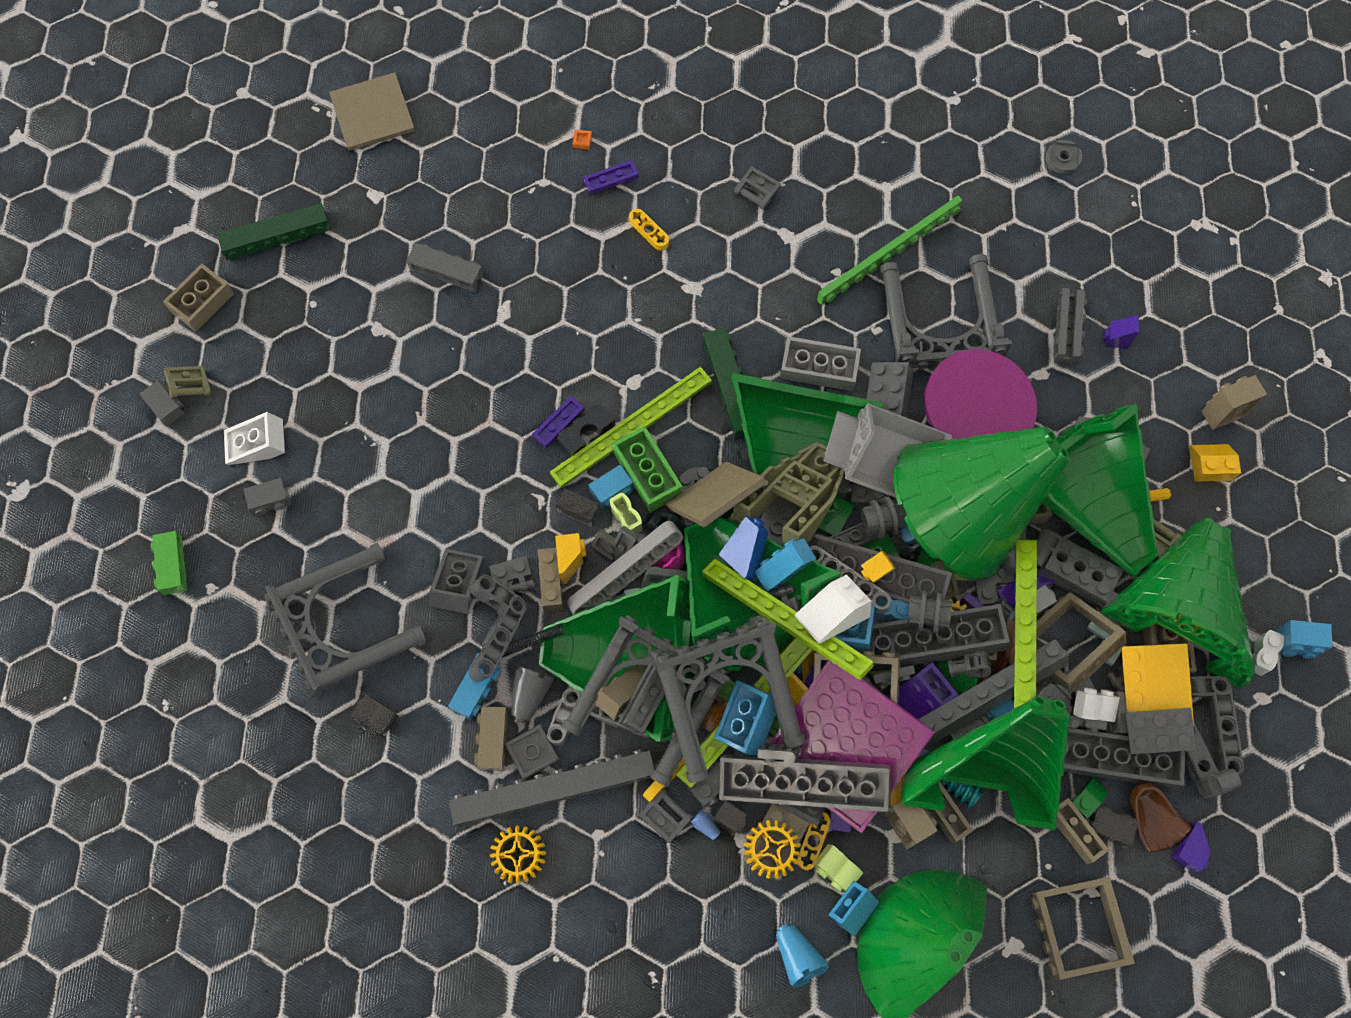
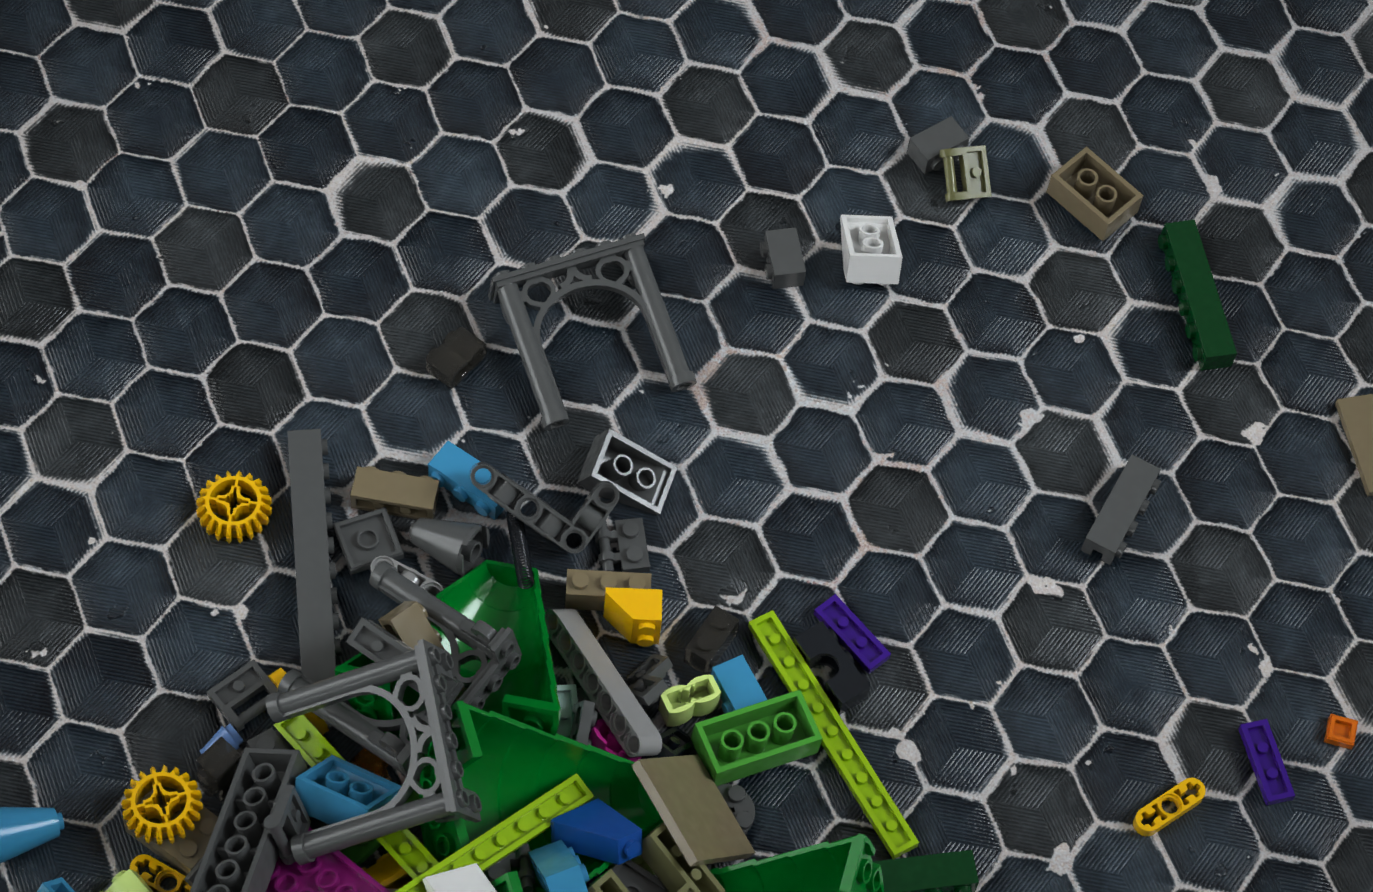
camera: 90 degrees right, 10 degrees down
(169, 563) = (706, 142): bright green brick -> none

